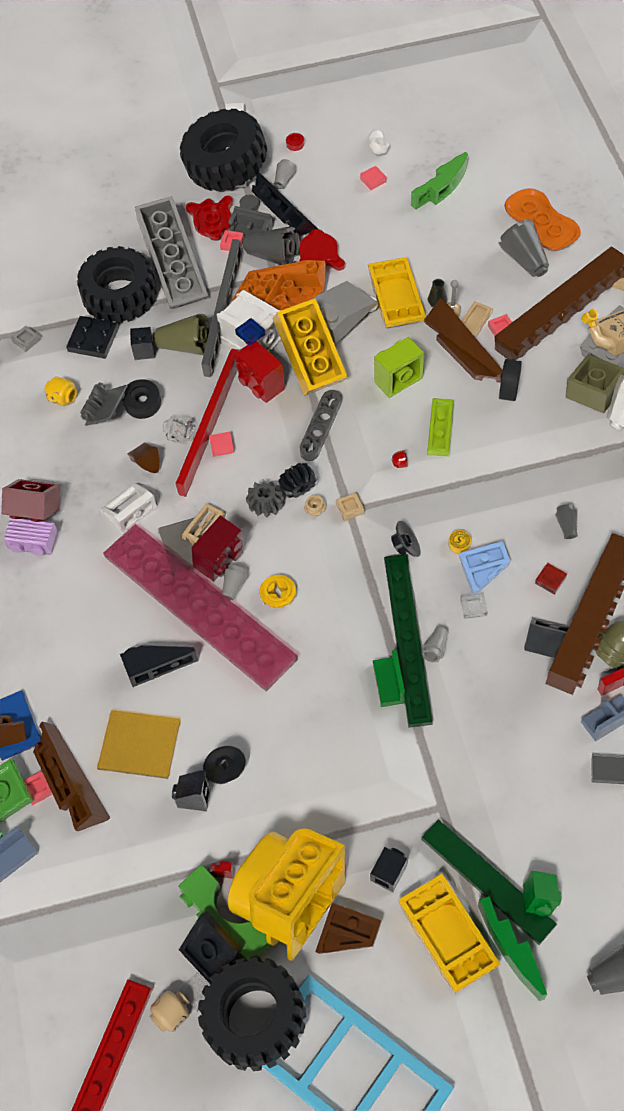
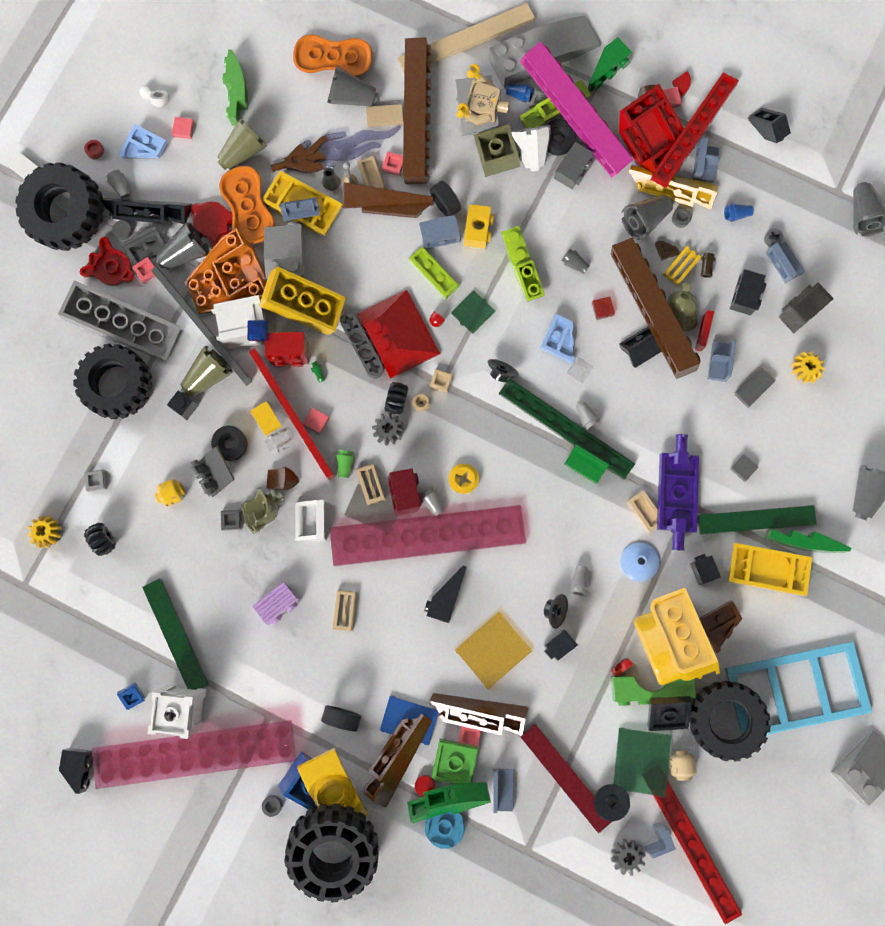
camera: 50 degrees left, 20 degrees up
(21, 1039) = (621, 854): none -> dark grey gear
(30, 500) = (251, 583): brick -> none
(63, 967) = (618, 809): none -> black piece
(66, 910) = (564, 776): none -> dark red tile
(72, 597) = (344, 614): none -> tan tile
(75, 1046) = (664, 844): none -> sand blue panel
(76, 451) = (231, 520): none -> dark grey tile
(92, 337) = (139, 433): black plate -> none
(105, 462) = (261, 510): none -> olive helmet
(140, 967) = (642, 761): none -> clear green piece
(187, 401) = (265, 418): none -> yellow slope
(204, 490) = (344, 462): none -> bright green cone
(266, 410) = (317, 369): none -> green piece
(270, 764) = (579, 583): none -> light grey cone
(330, 164) = (142, 144): none -> light blue wing
(339, 816) = (630, 563): none -> light blue dish
(357, 443) = (398, 334): none -> red slope
(358, 249) = (243, 193): none -> orange plate
(387, 290) = (300, 209): none -> sand blue hinge
(396, 771) = (644, 510): none -> tan tile
(397, 218) = (240, 146): none -> olive cone
(398, 367) = (368, 258): lime brick -> none
(437, 483) = (473, 312): none -> clear green piece
(441, 781) = (678, 492): none -> dark purple plate
(444, 267) = (324, 148): none -> piece
(459, 541) = (528, 337): yellow tile -> none
(477, 400) = (439, 232): none -> sand blue panel
(514, 423) = (478, 237): none -> yellow brick
(519, 481) = (522, 264): none -> lime slope
(527, 826) = (744, 468): none -> dark grey tile
(531, 288) = (384, 115): none -> tan tile
(541, 893) = (793, 498): green brick -> none

